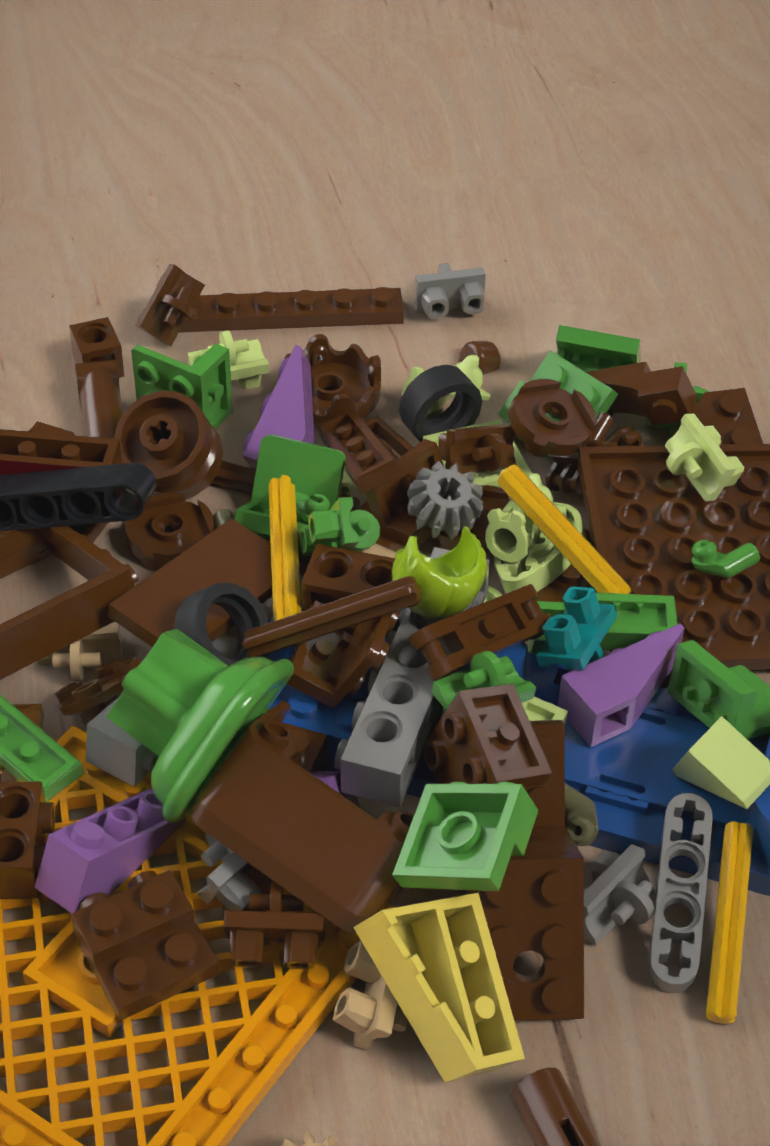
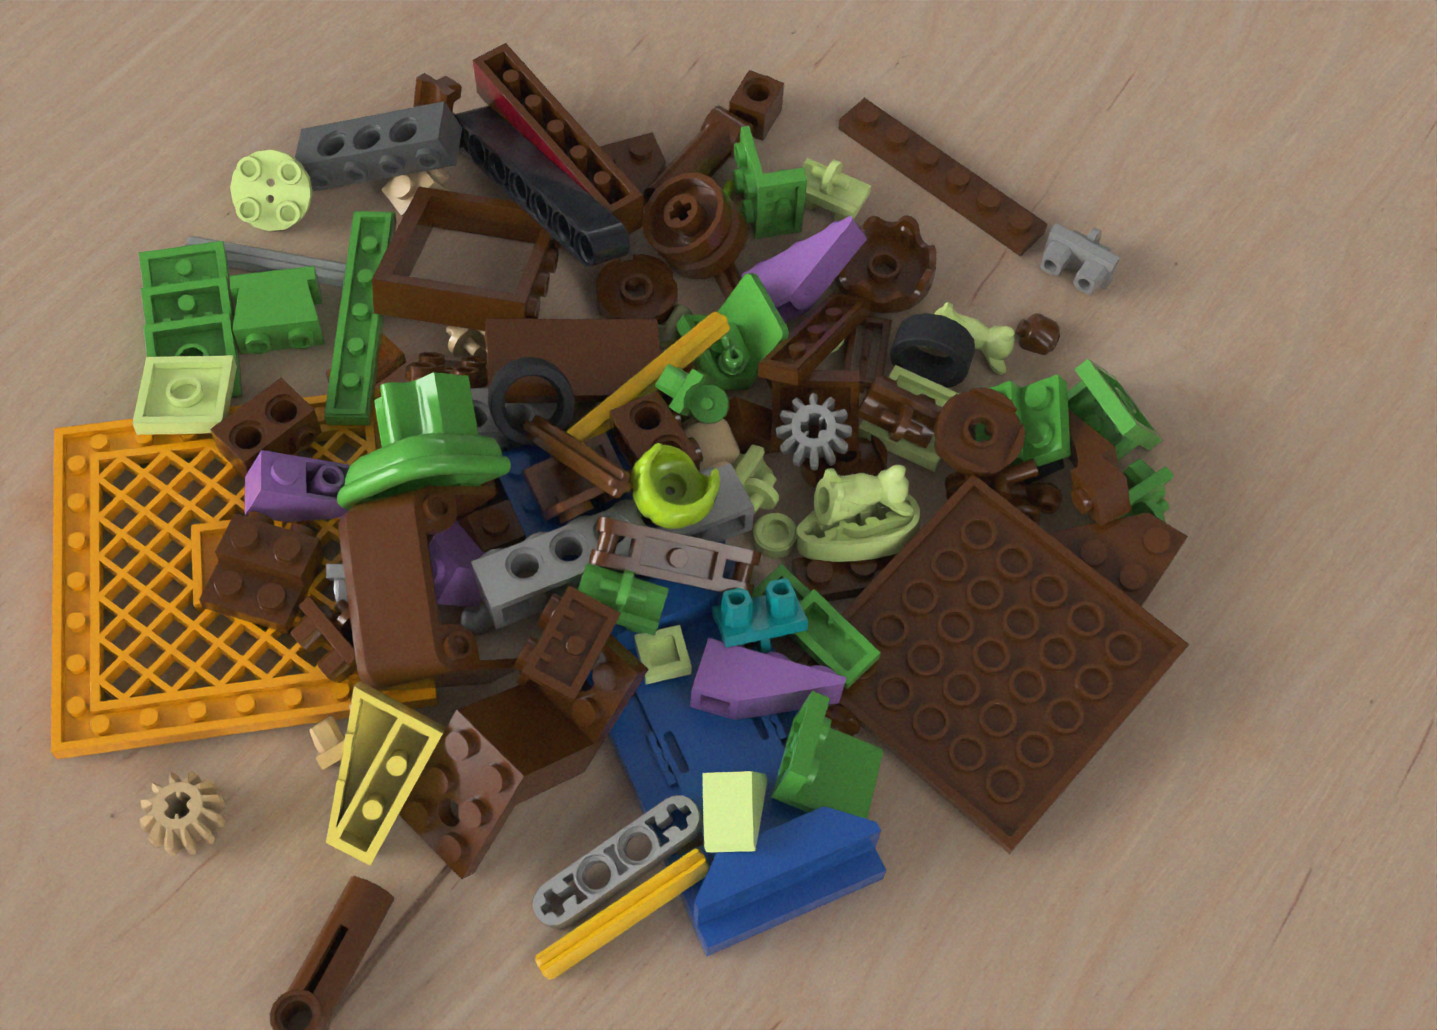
camera: 45 degrees right, 15 degrees up
(170, 305) = (842, 106): reddish brown hips -> none
(465, 836) = (464, 688): bright green plate -> none
(561, 532) = (859, 533): yellow axle -> none
(580, 817) = (620, 746): olive arm -> none
(617, 893) = (578, 820): light grey hips -> none
(698, 455) = (1038, 562): yellowish green hips -> none
(709, 561) = (960, 661): bright green arm -> none

